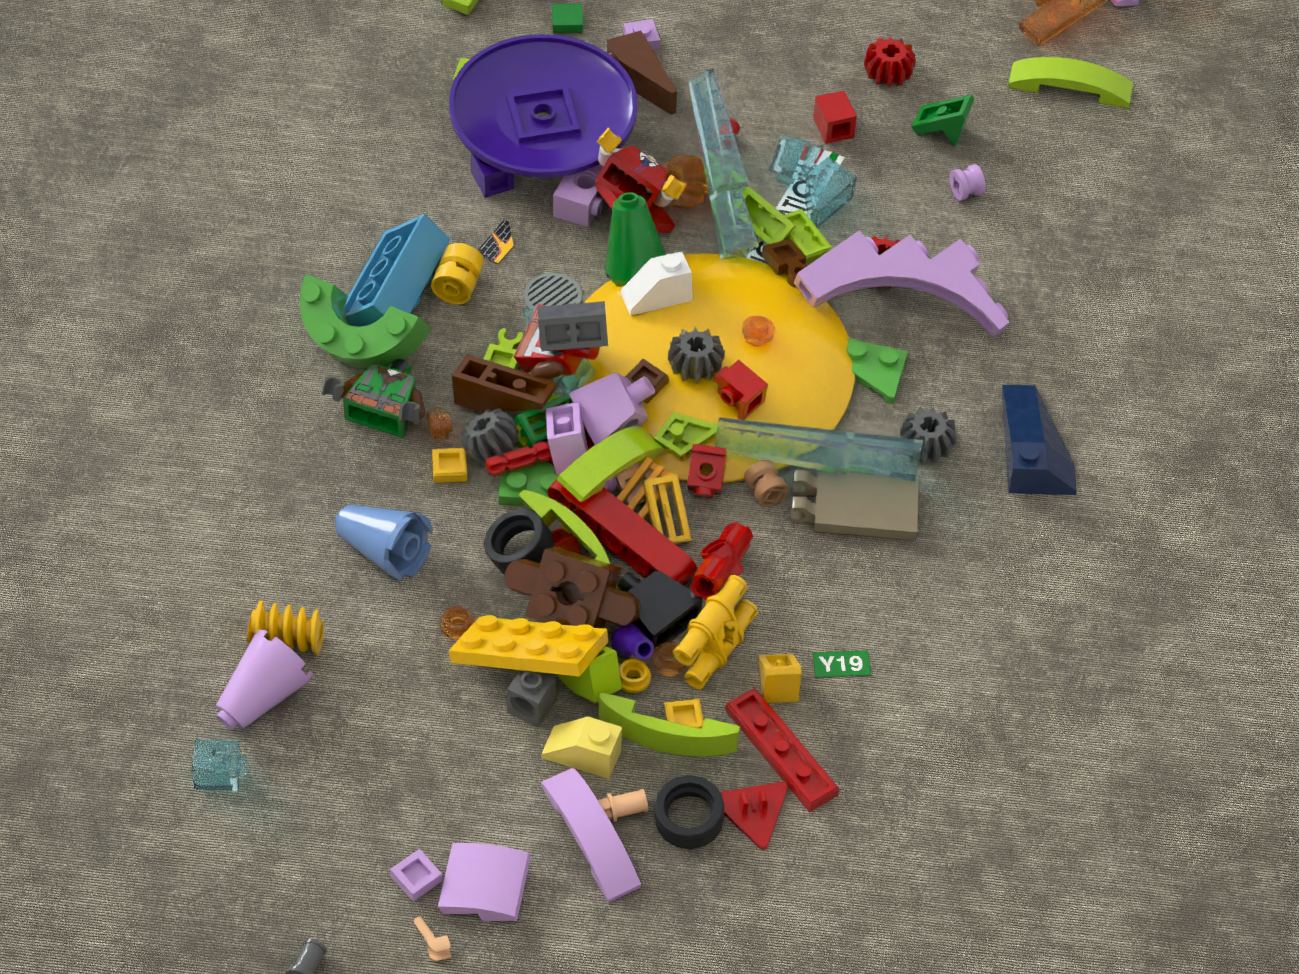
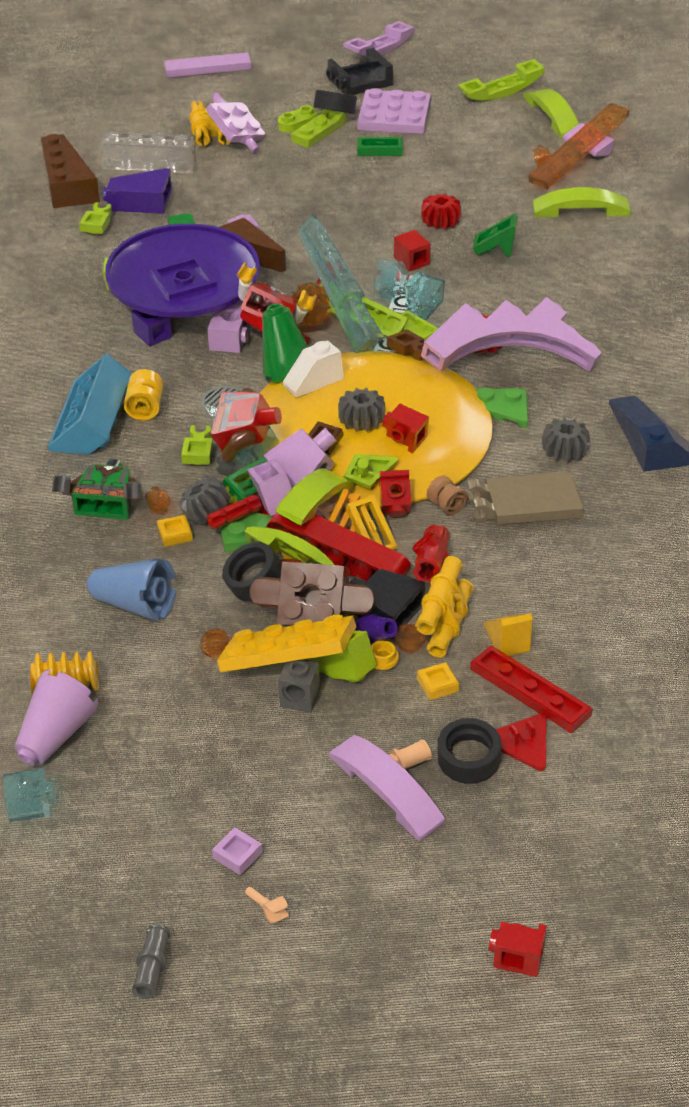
camera: 10 degrees left, 10 degrees down
(380, 343) = (72, 455): bright green brick -> none
(484, 881) = (302, 843): lavender slope -> none
(491, 386) = (191, 462): reddish brown slope -> none
(498, 243) = (170, 373): sticker -> none
(572, 326) = (257, 397): dark grey hinge -> none
(585, 745) = (358, 713): light yellow slope -> none
(666, 736) = (424, 694): lime slope -> none
(758, 330) = (405, 387): clear orange plate -> none
(821, 448) = (485, 459): clear light blue slope -> none
(841, 663) = (556, 616): green sticker -> none
(967, 182) = (530, 274): lavender wheel -> none

